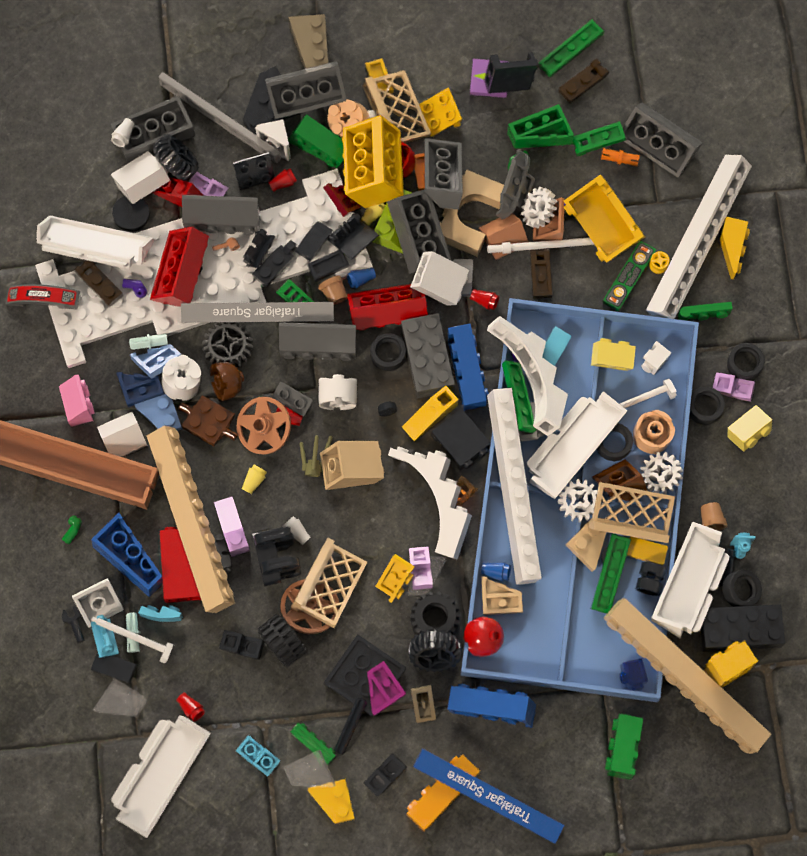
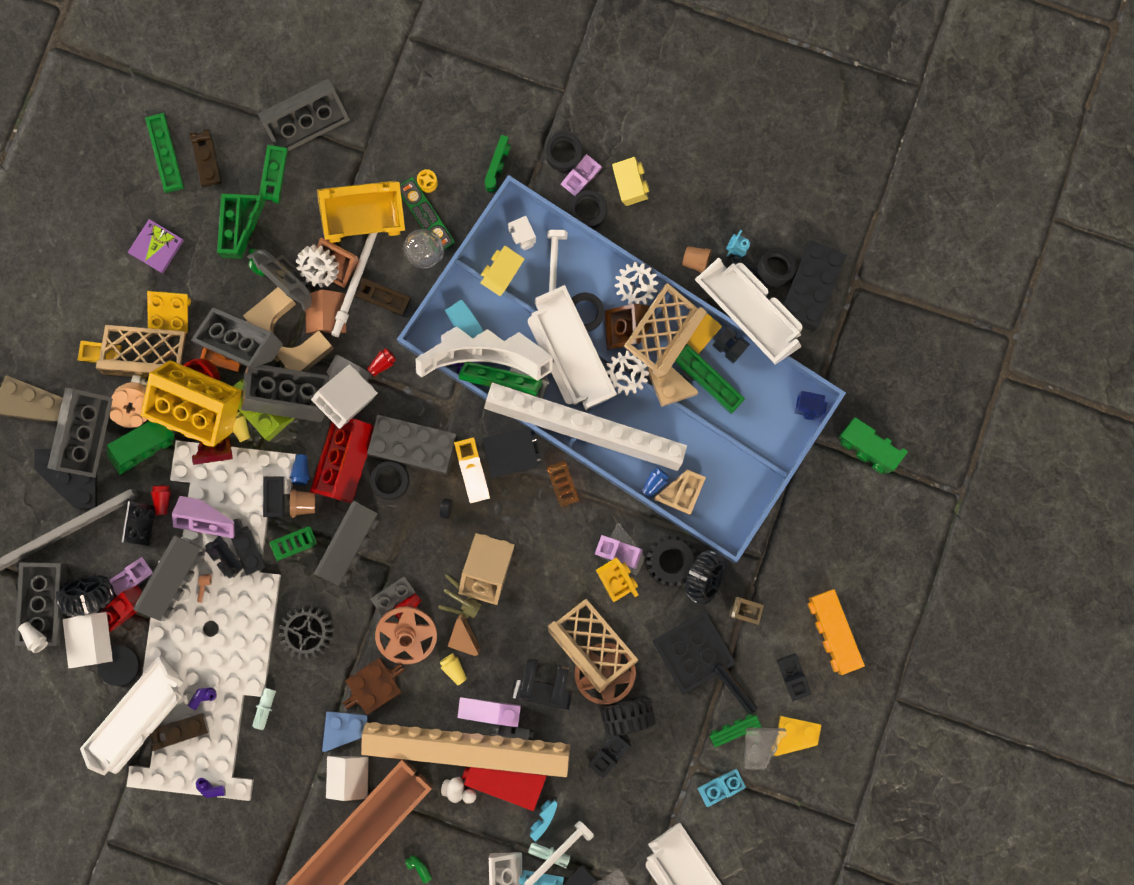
camera: 70 degrees left, 10 degrees up
(43, 295) = (165, 793): slope -> none
(61, 328) = (208, 789): none -> dark purple arm
(75, 401) = (292, 808): bright pink slope -> none
(125, 553) = (468, 827): blue wedge -> none
(139, 388) = (307, 739): dark blue wing -> none
(151, 528) = (454, 791): none -> white animal
(156, 358) = (287, 708): medium blue wing -> none
(179, 266) = (203, 643): red slope -> none
(181, 378) = (309, 688): white brick -> none
(191, 708) = (647, 831): red cone -> none
(226, 380) = (343, 650): reddish brown cylinder -> none
(257, 312) = (289, 589): light grey tile -> none
(275, 135) = (112, 485): white slope -> none
(282, 214) = (200, 517): none -> lavender slope
(284, 473) = (463, 637): none -> medium nougat slope
(297, 529) = (524, 651): white cone -> none
(313, 241) = (242, 499): black slope -> none
(337, 393) = (408, 549): white brick -> none
(352, 236) = (258, 459): black hinge -> none
(383, 688) = (717, 641): magenta wing -> none
(452, 521) = (587, 499): white arch -> none
(466, 367) = (443, 413): blue wedge -> none
(484, 636) = (713, 524): red cylinder -> none
(488, 796) = (859, 593): blue tile -> none
(492, 704) = (777, 549): blue wedge -> none
(510, 75) = (167, 225): black panel -> none
(599, 286) = (423, 248): none -> clear cylinder
(620, 157) = (302, 163): orange pin -> none
(663, 428) = (596, 260): light nougat brick -> none
(687, 676) = (836, 359): tan brick -> none
(699, 237) = (422, 131): white brick -> none
(731, 240) = (441, 103): yellow slope -> none
(731, 664) = (846, 315): yellow brick -> none

